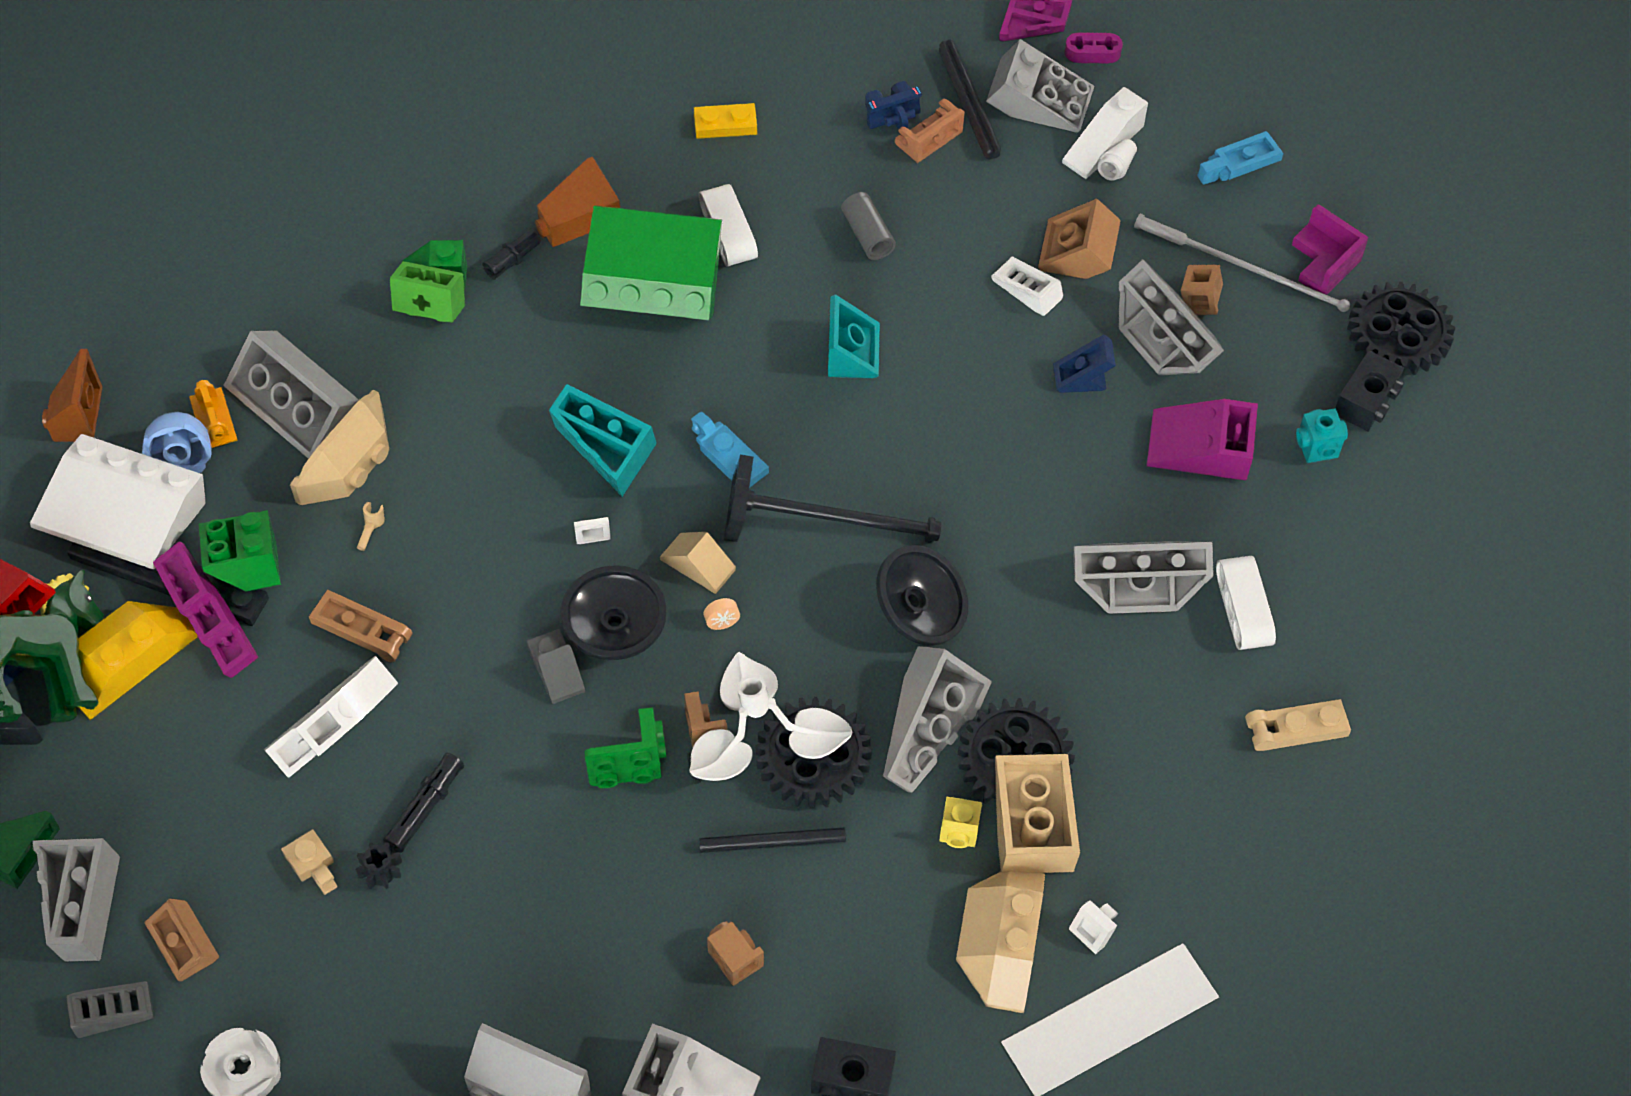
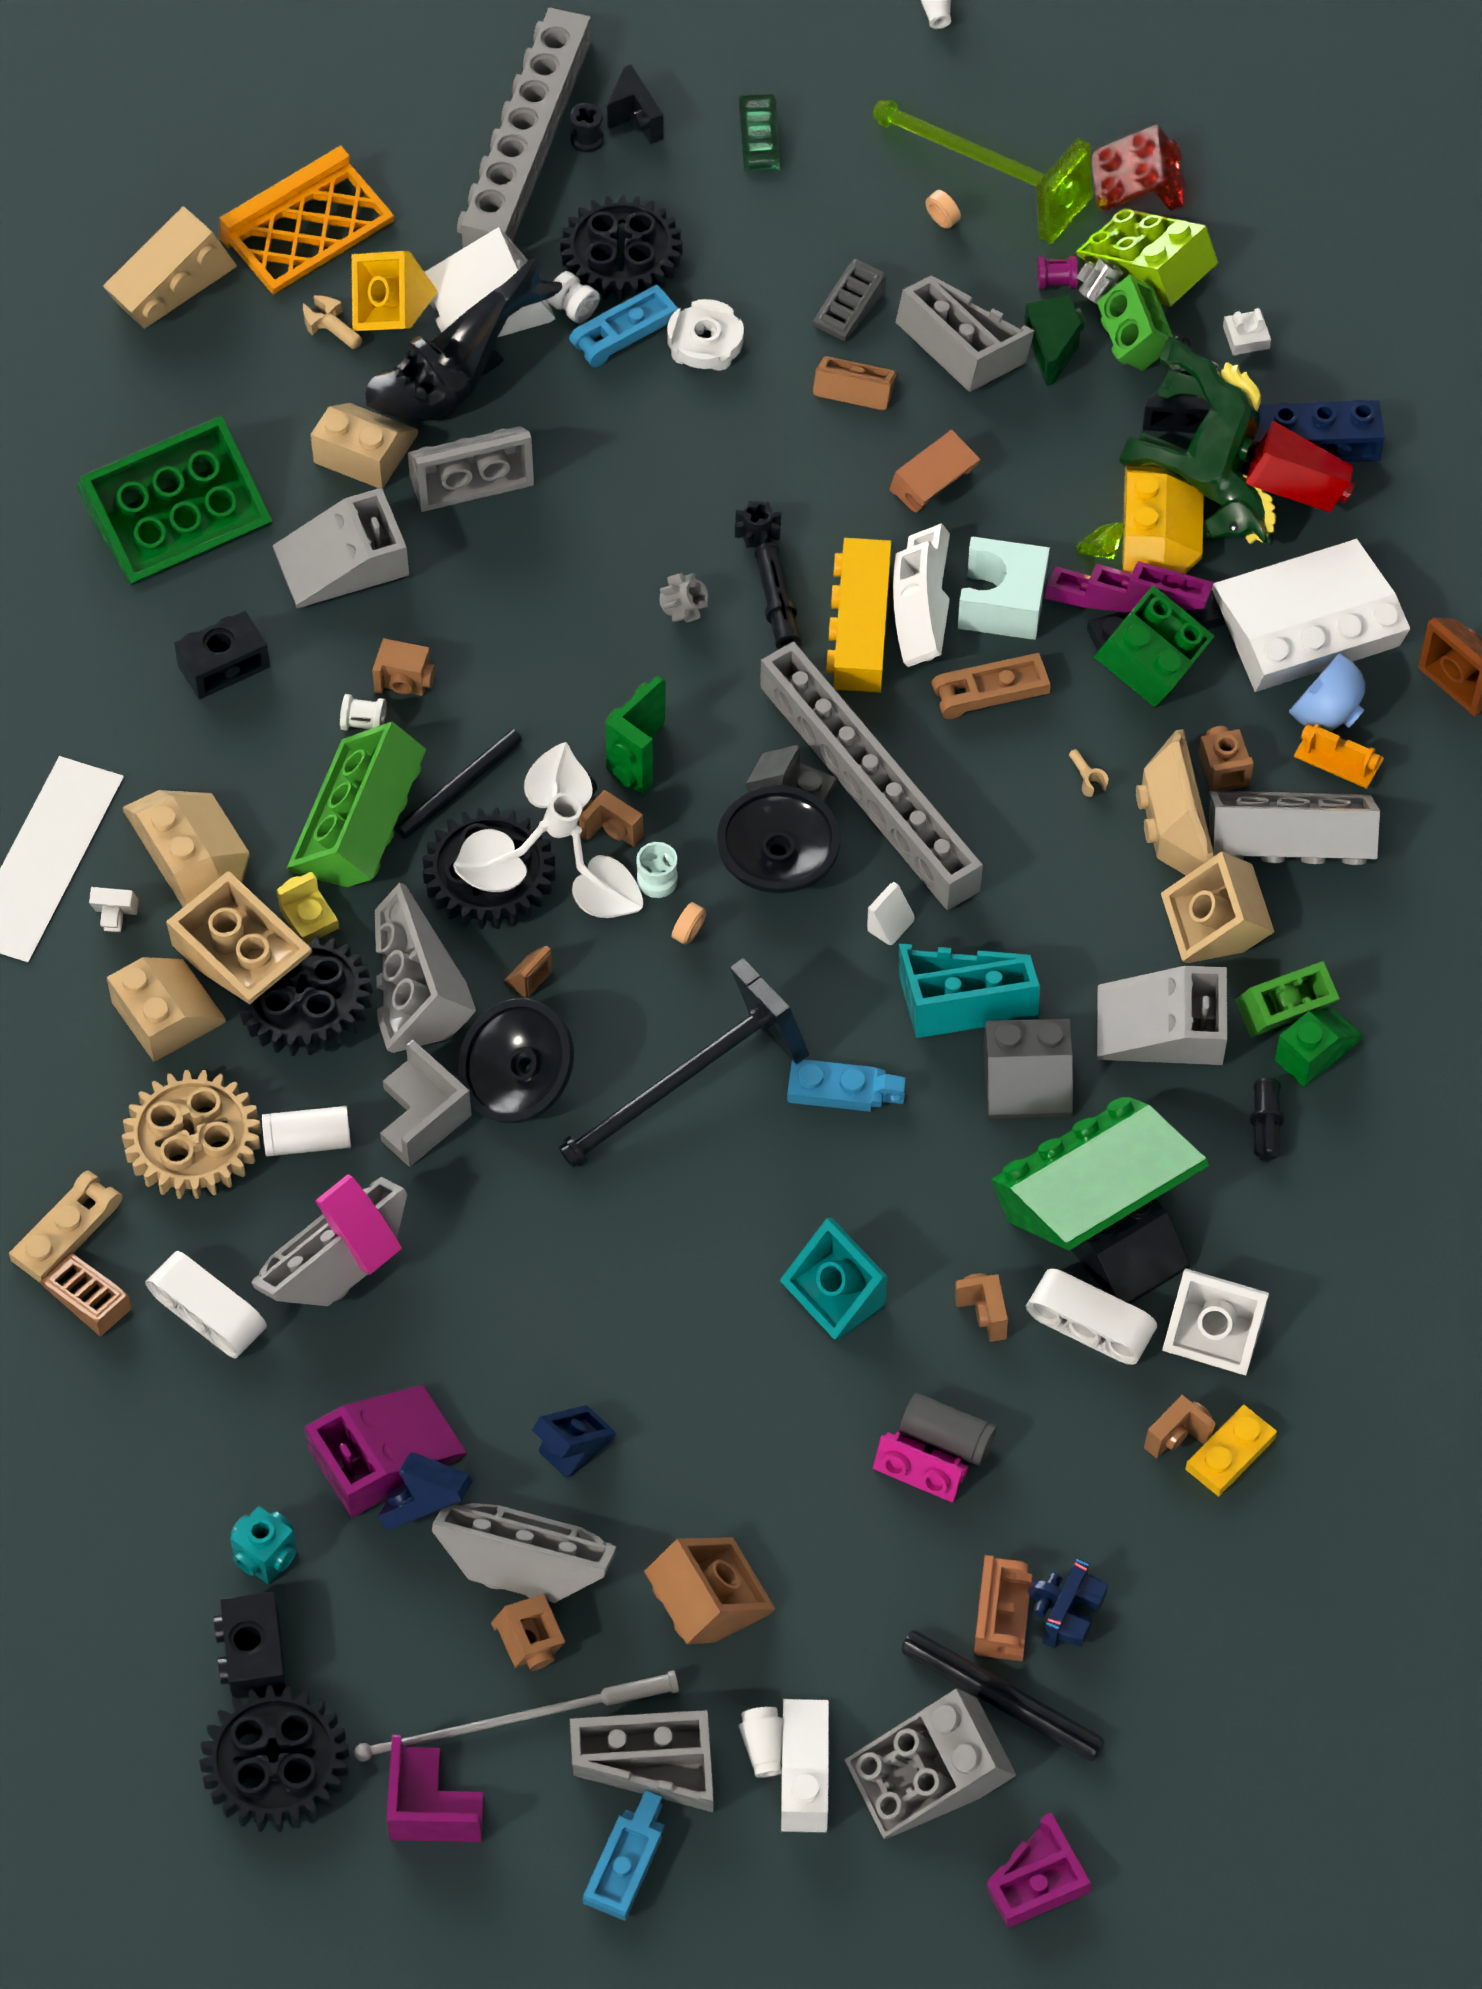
camera: 140 degrees right, 0 degrees up
(172, 670) = (1102, 541): none -> clear neon green slope
(218, 808) = (933, 470): none -> nougat hinge
(270, 666) = (1017, 601): none -> light aqua piece
(281, 462) = (1225, 759): none -> medium nougat brick
(311, 858) = (822, 499): tan plate -> none
(386, 739) = (861, 615): none -> yellow brick
(402, 375) = (1217, 909): none -> tan slope
(489, 846) = (683, 597): none -> light grey gear
(504, 337) = (1164, 1017): none -> light grey slope
(508, 617) = (871, 776): none -> light grey brick
(569, 207) = (1261, 1218): dark orange slope -> none
(611, 374) = (1028, 1068): none -> dark grey slope
(664, 174) = (1215, 1321): none -> white slope
(699, 559) = (770, 953): tan slope -> none
(707, 656) = (657, 869): none -> light aqua wheel
(745, 144) = (1175, 1424): none -> medium nougat bracket
(777, 270) = (988, 1299): none -> medium nougat bracket
(793, 939) = (362, 713): none -> white bush
(851, 664) = (531, 972): none -> medium nougat slope
(863, 868) = (358, 806): none -> bright green slope
(905, 233) = (909, 1463): none -> dark pink hinge
(1003, 615) = (433, 1103): none -> light grey panel
(1042, 298) = (721, 1515): white slope -> none
(1091, 663) = (306, 1131): none -> white pin
(1093, 48) = (923, 1881): magenta beam -> none
(1116, 822) = (163, 1004): none -> tan slope
(1122, 545) = (359, 1224): none -> dark pink slope
(1161, 744) = (179, 1104): none -> tan gear
(1190, 185) = (648, 1753): none -> light grey wedge
(1203, 381) = (426, 1490): none -> dark blue slope
(1312, 647) = (98, 1320): none -> medium nougat slope

